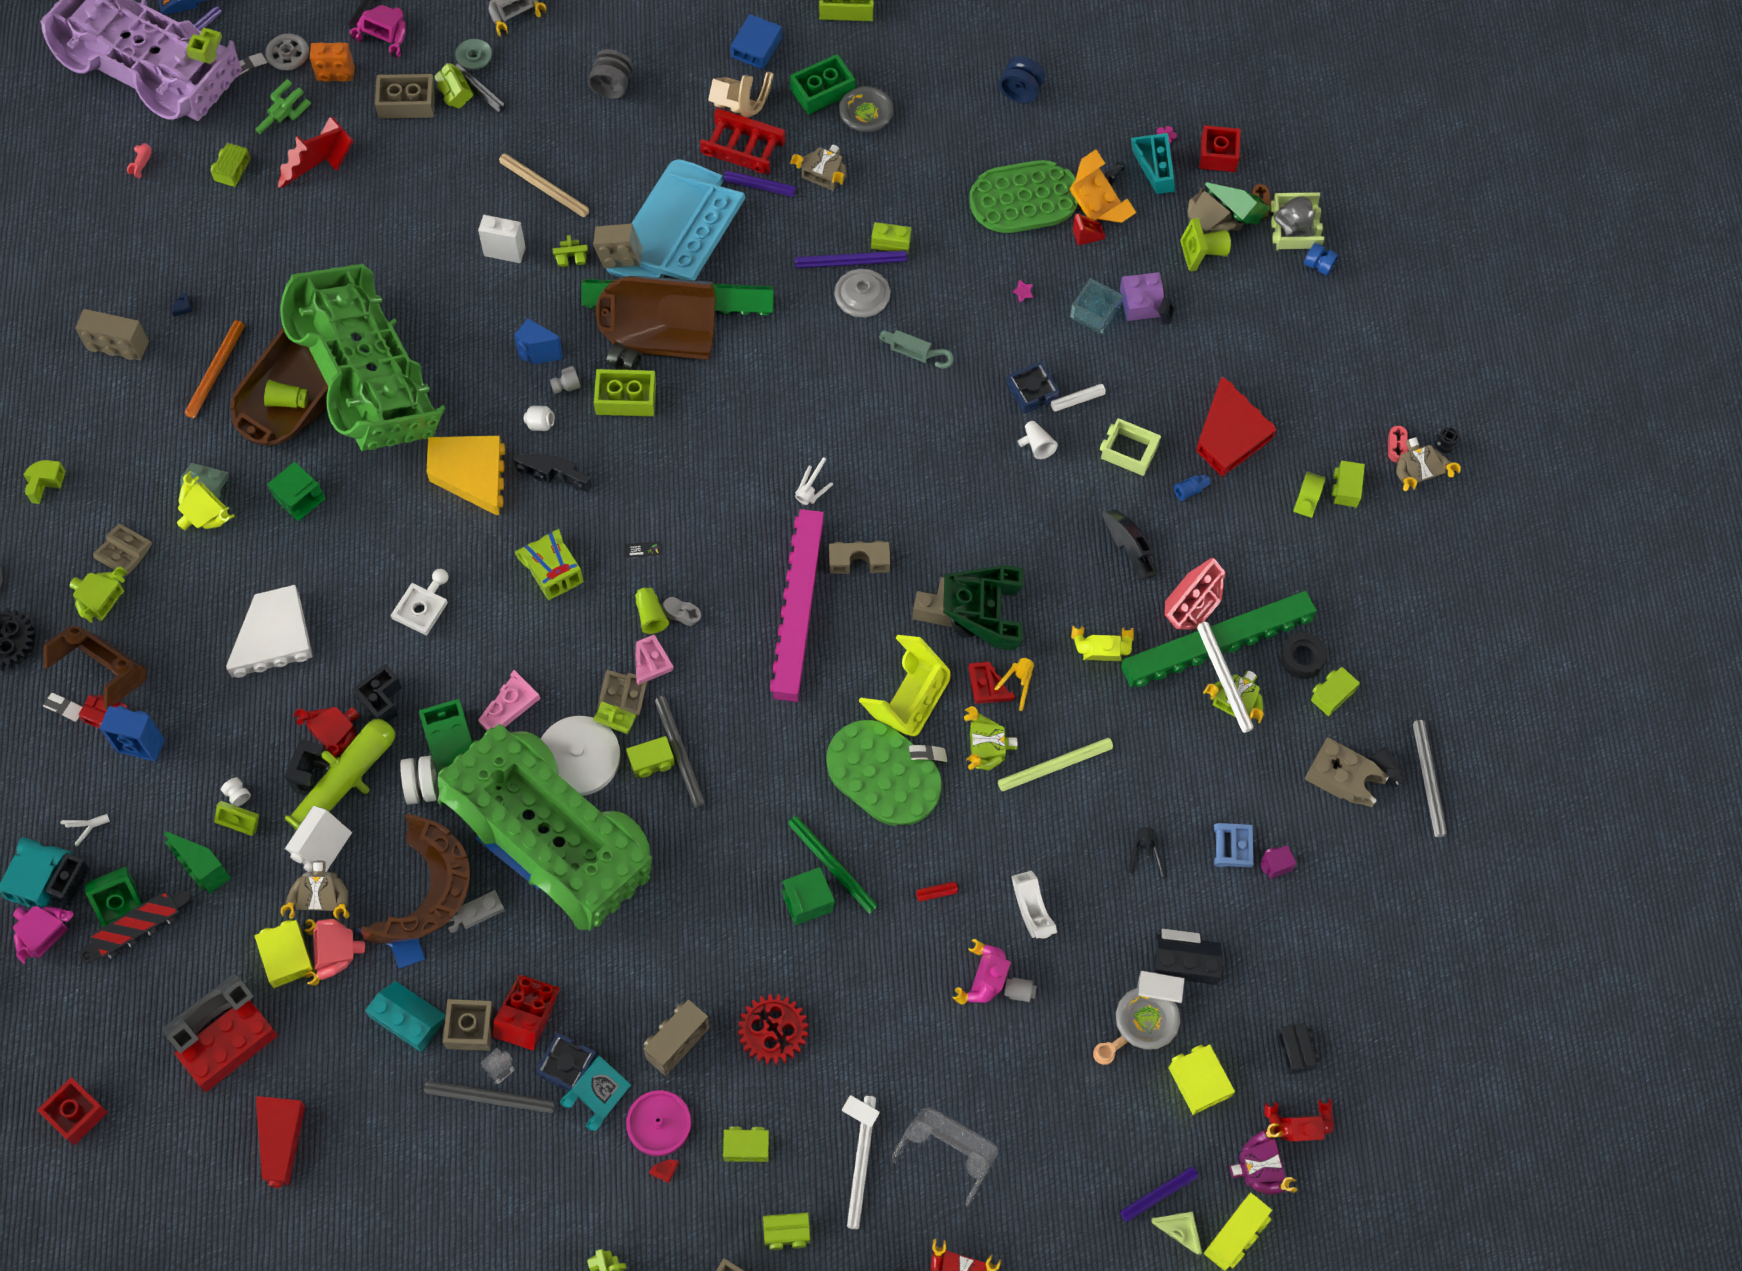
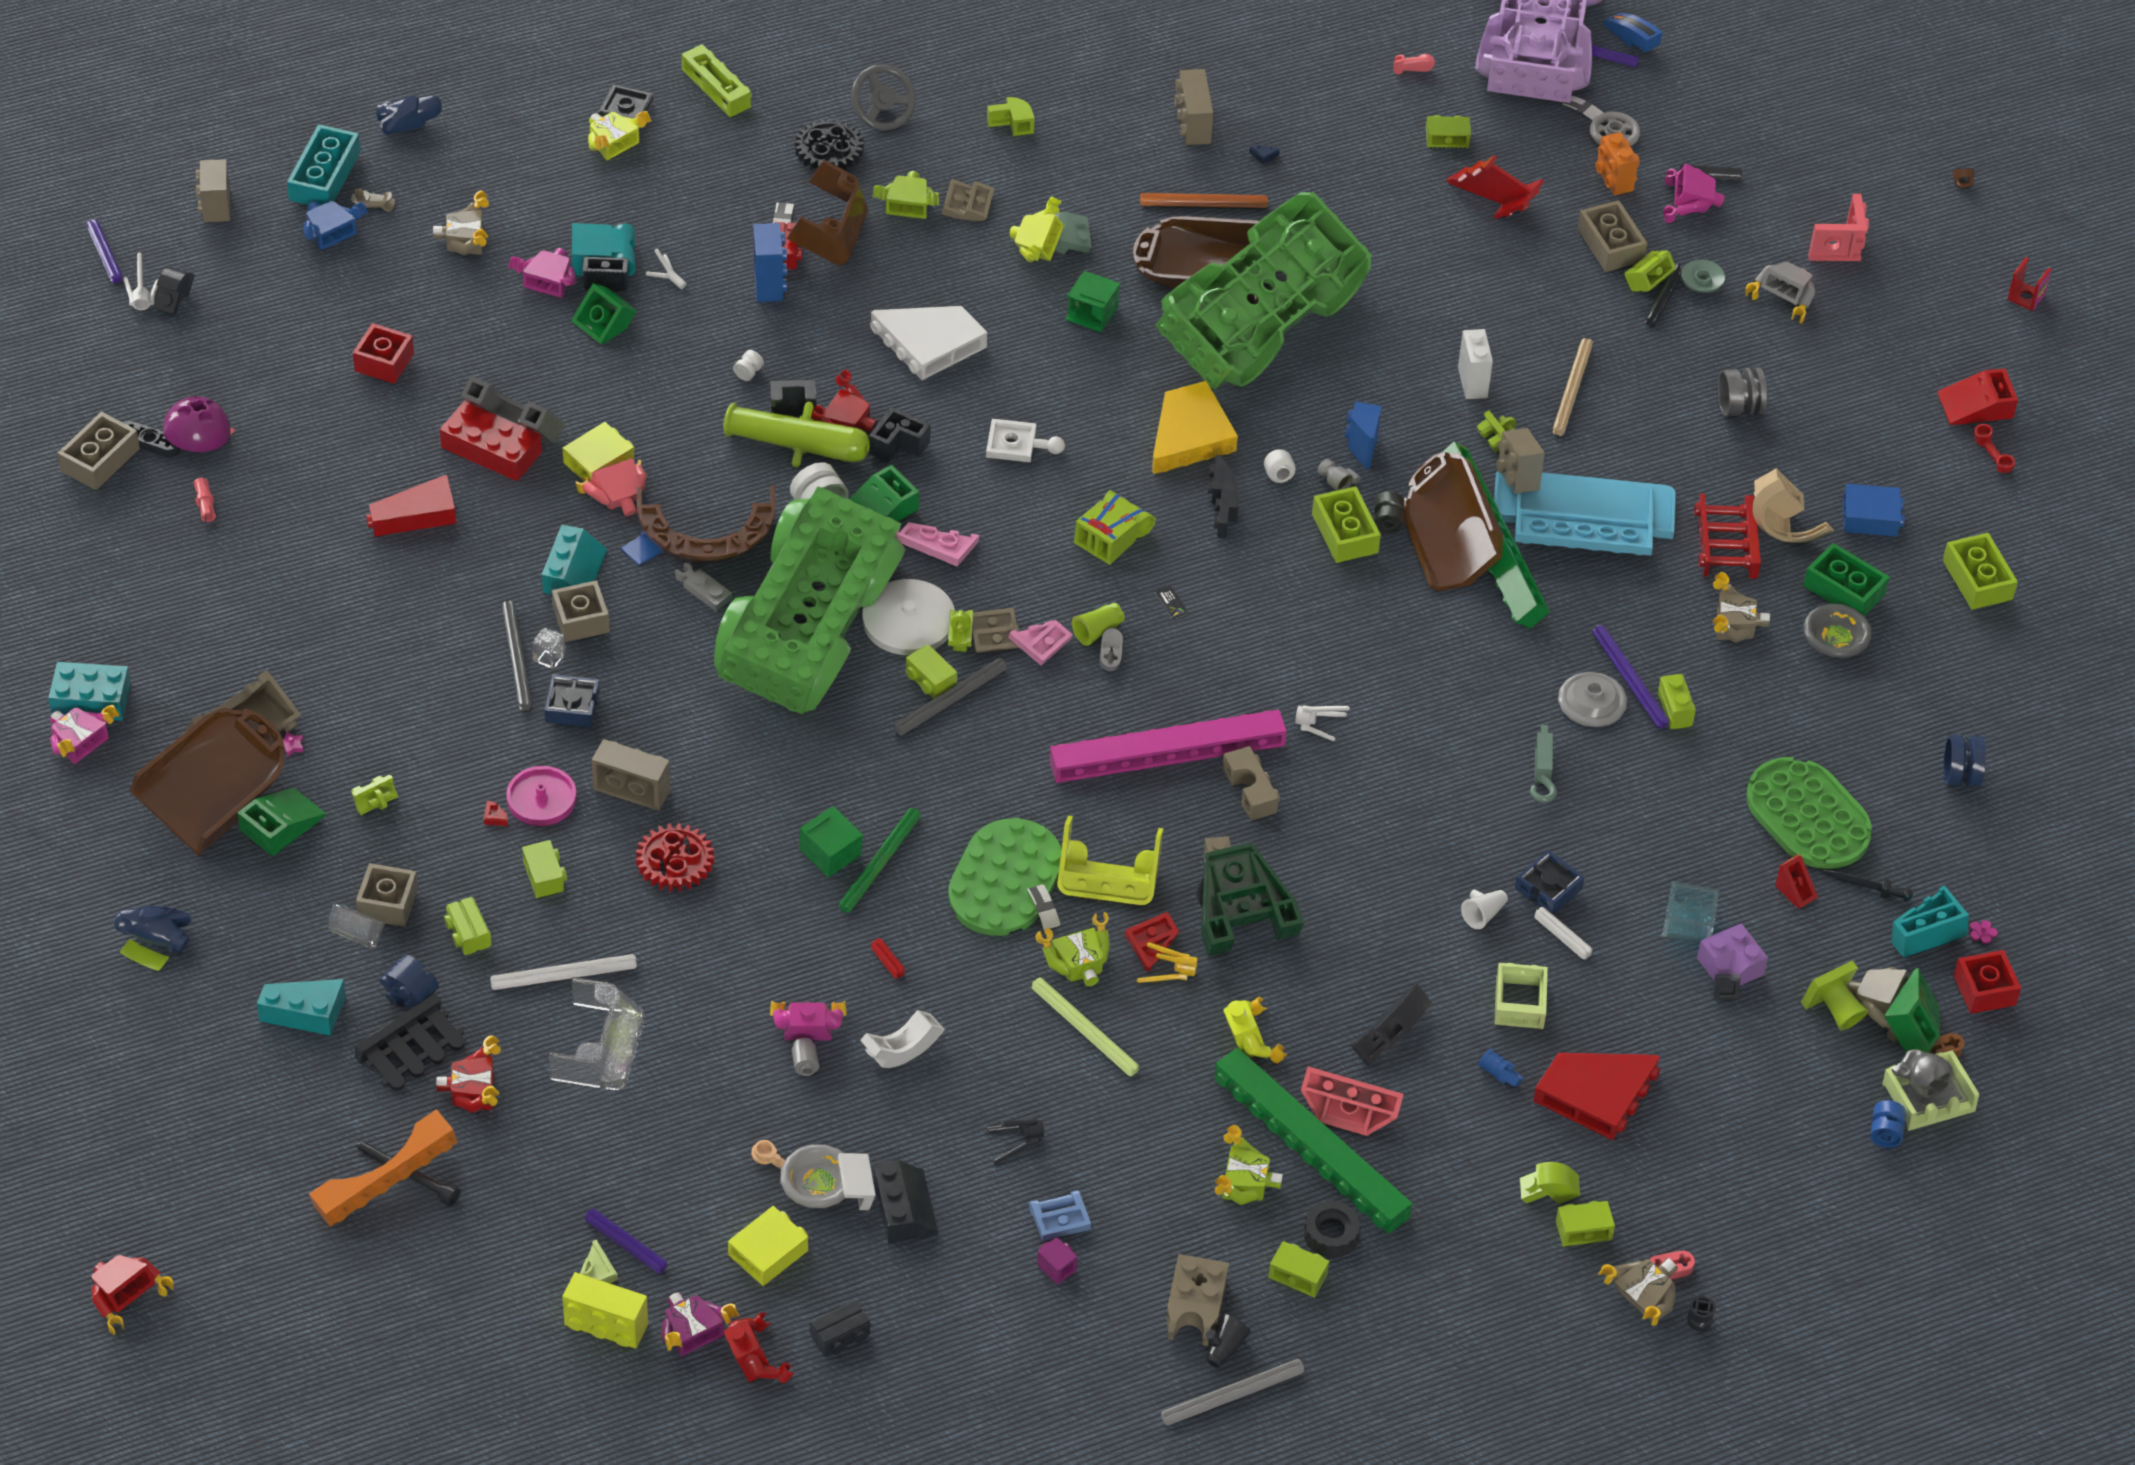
camera: 70 degrees right, 15 degrees down
(134, 925) = (581, 337): black hinge -> none
(198, 862) = (658, 358): green slope -> none
(204, 46) = (1550, 46): lime brick -> none
(236, 818) = (721, 375): lime plate -> none
(282, 107) = (1541, 147): bright green plant -> none
(285, 395) = (1195, 252): lime plant -> none
(318, 839) = (720, 436): white brick -> none
(318, 892) = (668, 453): dark tan torso -> none
(525, 1012) = (613, 654): red slope -> none
(599, 1090) = (555, 733): teal flag -> none
(759, 183) = (1684, 568): dark purple axle -> none
(860, 1111) = (616, 954): white sticker -> none
(1023, 291) = (1677, 844): dark pink piece -> none
(1096, 194) = (1850, 873): light orange piece -> none
(1180, 935) = (930, 1191): white sticker -> none
(1225, 677) = (1259, 1144): white axle -> none

